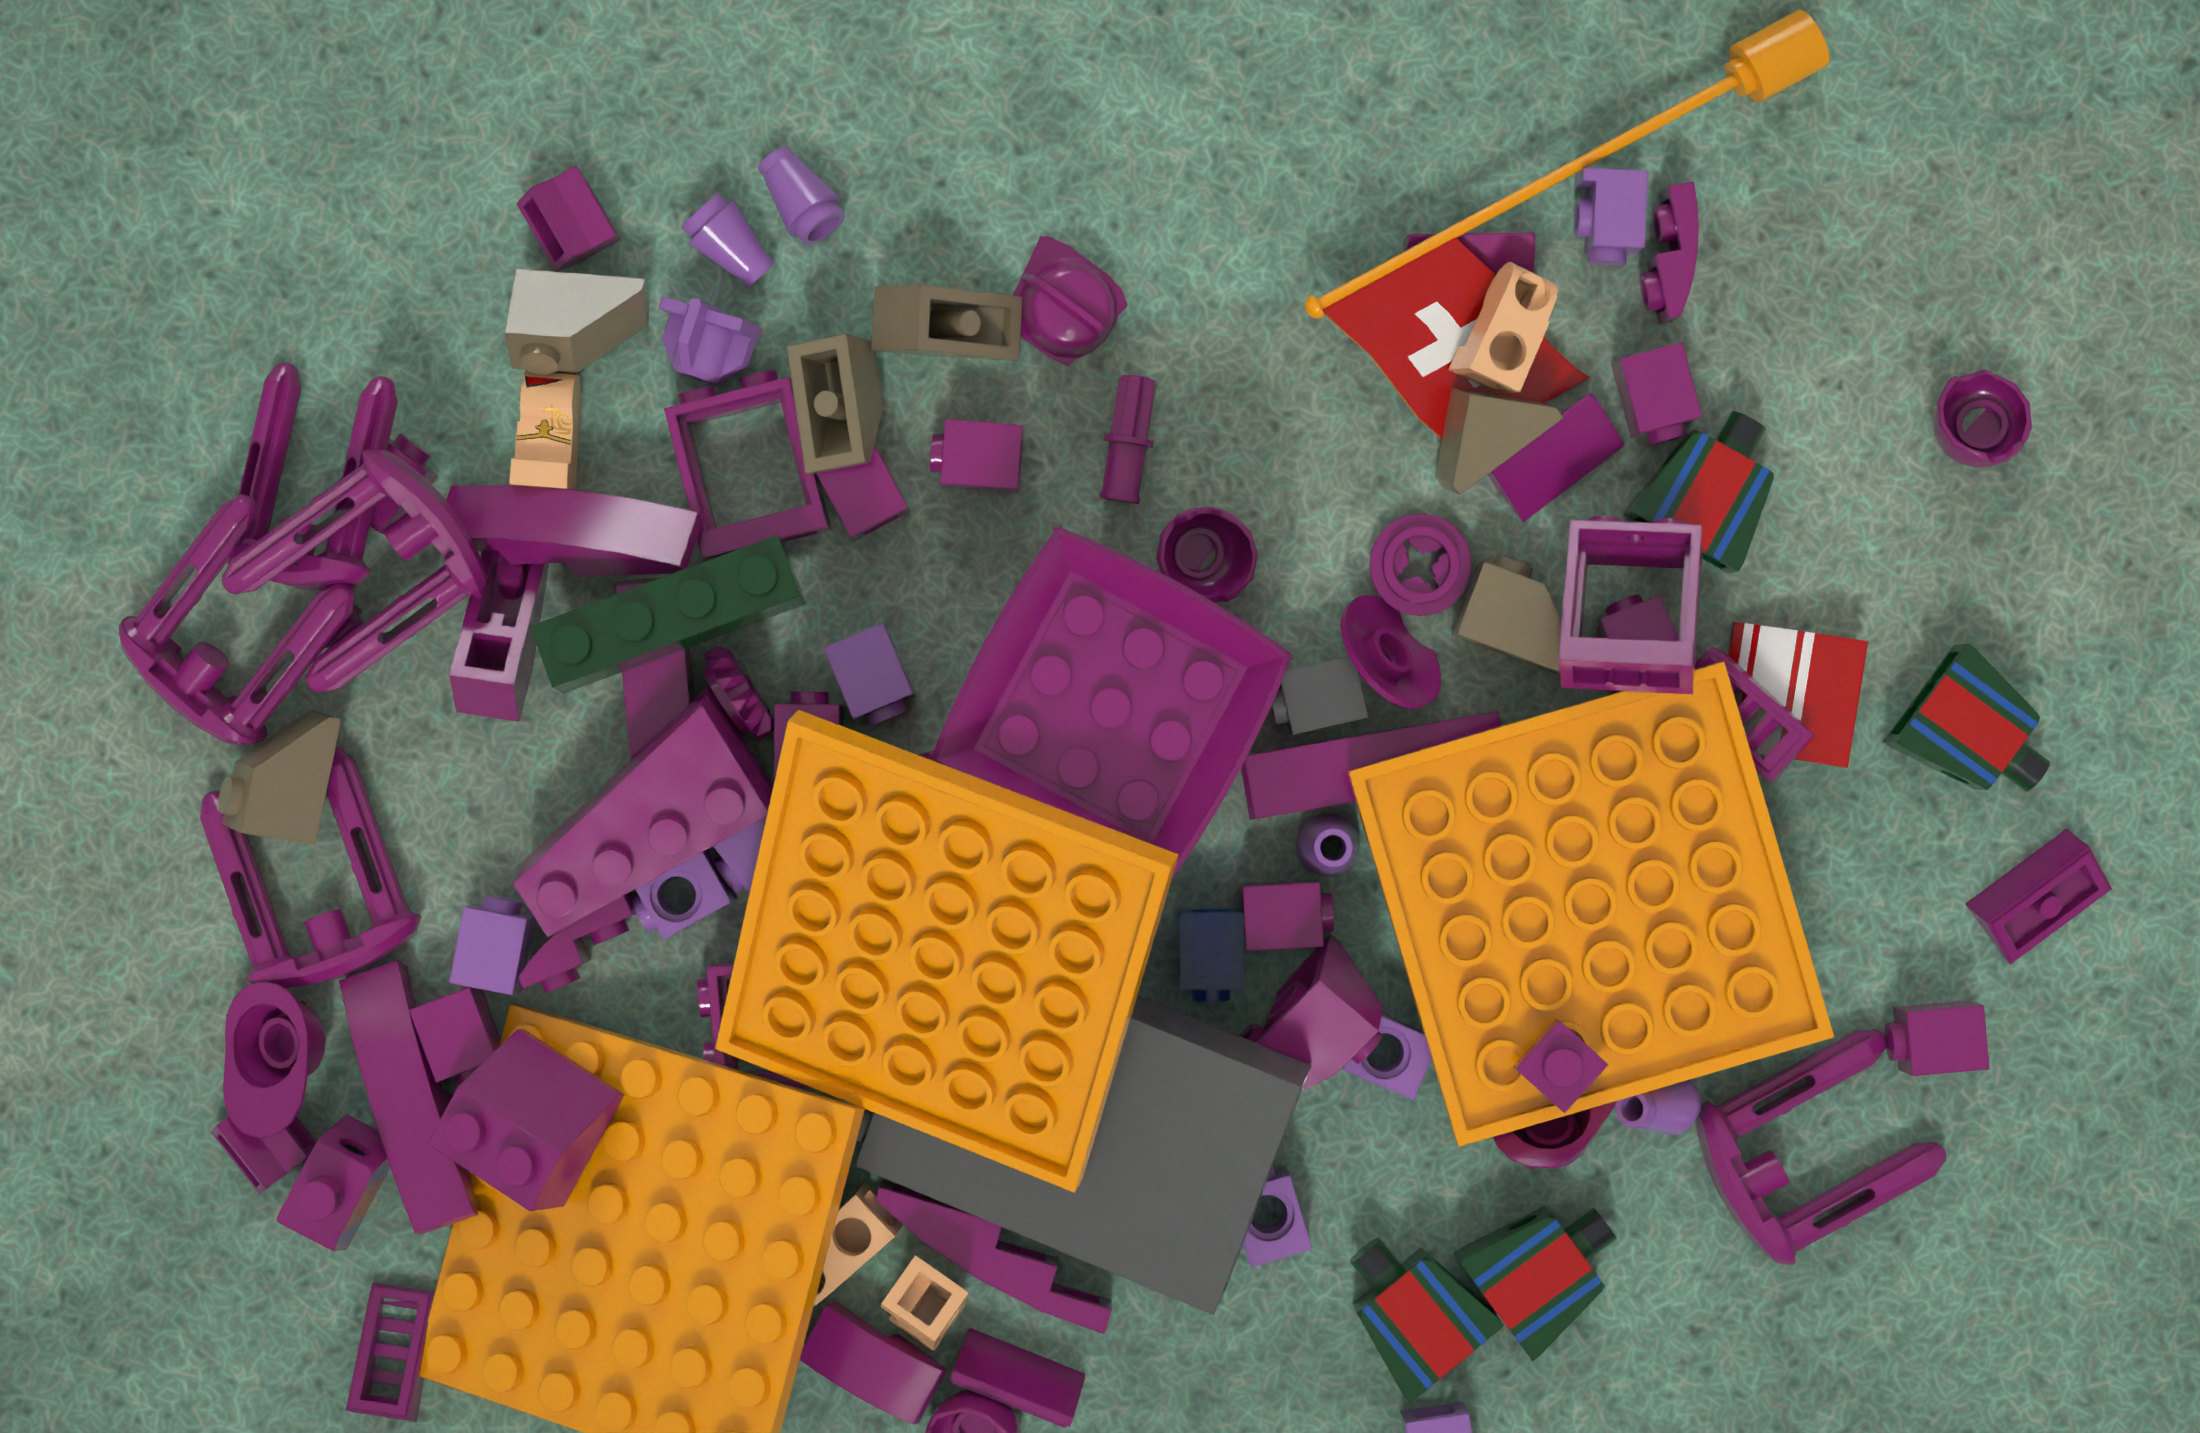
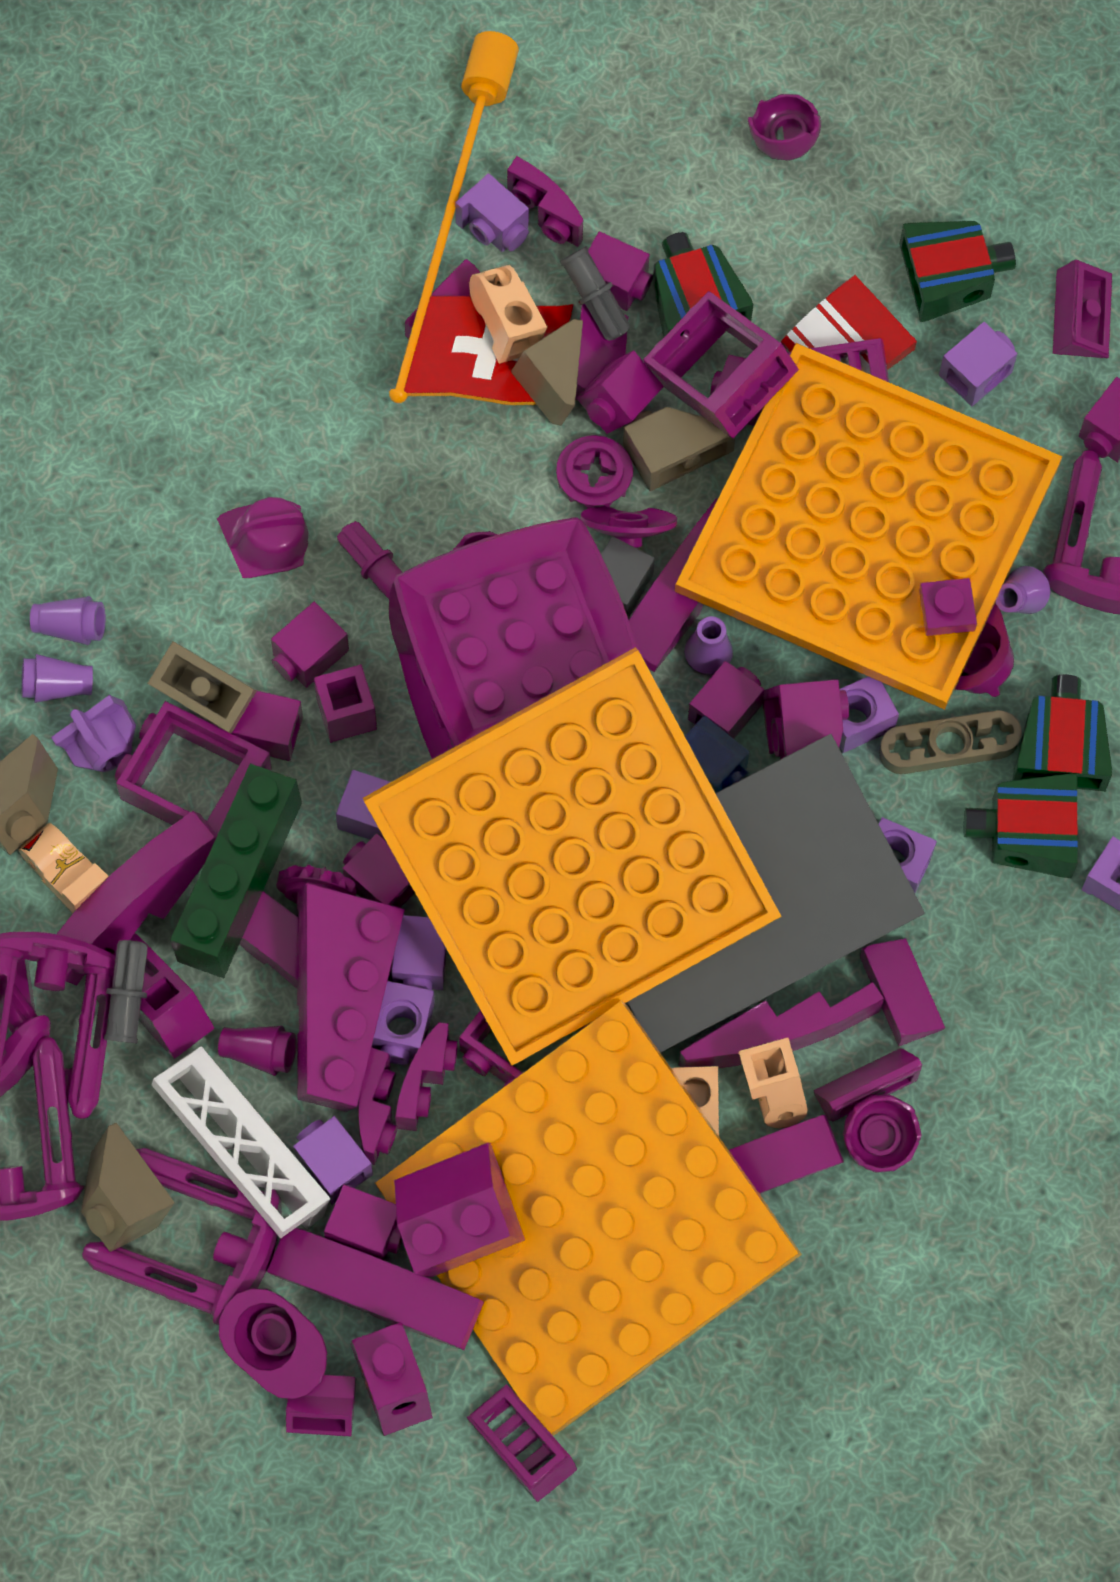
camera: 50 degrees left, 20 degrees down
(447, 858) = (247, 1134): none -> white fence
(454, 624) = (126, 992): none -> dark grey axle
(542, 780) = (263, 1048): none -> magenta cone
(677, 954) = (428, 1066): none -> magenta slope
(946, 322) = (215, 600): dark tan slope -> none
(947, 550) = (345, 703): none -> magenta brick
(1135, 1341) = (905, 994): none -> magenta slope
(1487, 1178) = (961, 726): none -> dark tan beam
(1521, 521) = (620, 392): none -> magenta brick
(1607, 401) = (596, 294): none -> dark grey axle
(1882, 847) = (978, 363): none -> medium lavender brick

